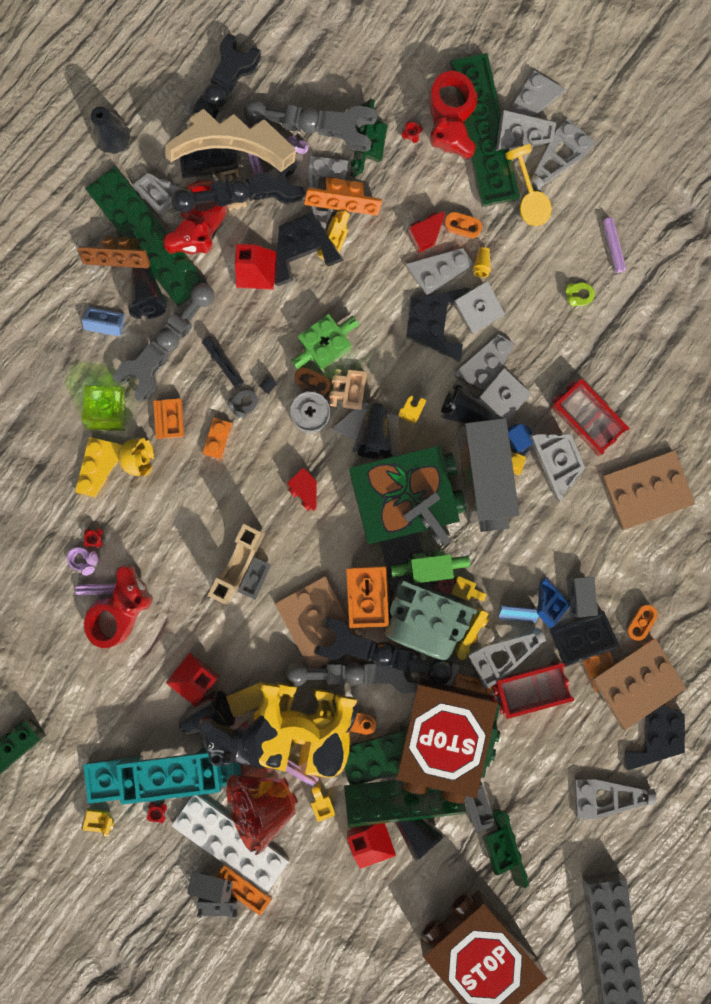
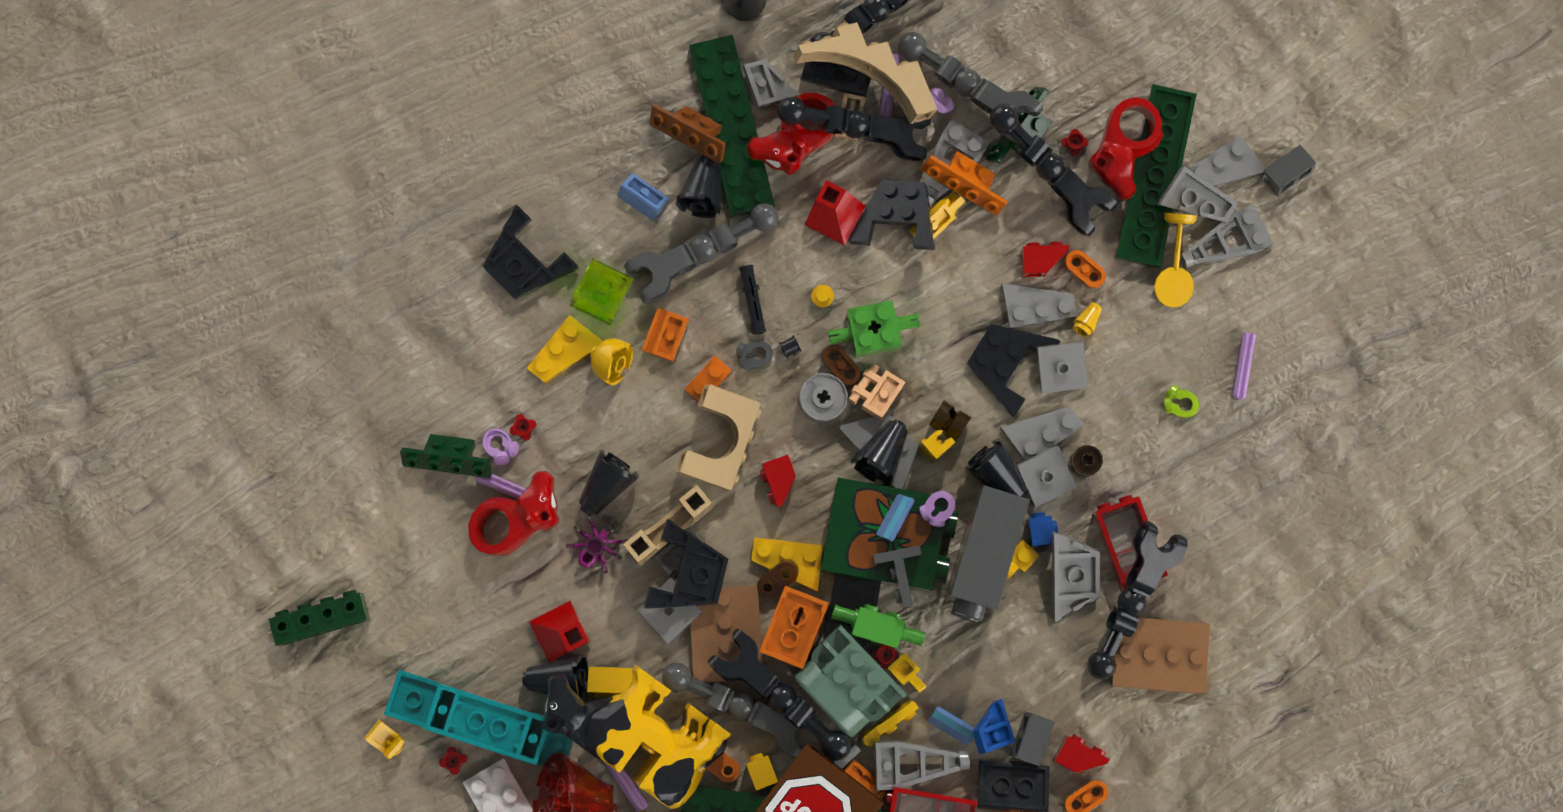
camera: 25 degrees right, 5 degrees down
(32, 418) = (516, 266): none -> black wing
(45, 586) = (447, 455): none -> dark green bracket
(175, 550) = (605, 483): none -> black cone
(189, 603) = (596, 545): none -> animal
(253, 453) = (741, 415): none -> tan arch
(268, 625) = (670, 621): none -> light grey plate
(274, 335) = (822, 296): none -> yellow plate
(277, 591) = (698, 574): none -> black wing
(337, 565) = (777, 579): none -> reddish brown plate
(341, 545) = (807, 557): none -> yellow wing
(392, 714) = (761, 771): none -> yellow brick
(407, 477) = (895, 517): none -> medium blue slope
(413, 386) = (949, 420): none -> dark brown wheel
(417, 163) = (1050, 167): none -> black piece
(428, 461) = (939, 520): none -> lavender piece
(529, 370) = (1085, 461): none -> dark brown wheel
(582, 80) = (1289, 170): none -> dark grey hinge
(613, 441) = (1132, 602): none -> black piece
(622, 595) = (1078, 757): none -> red slope

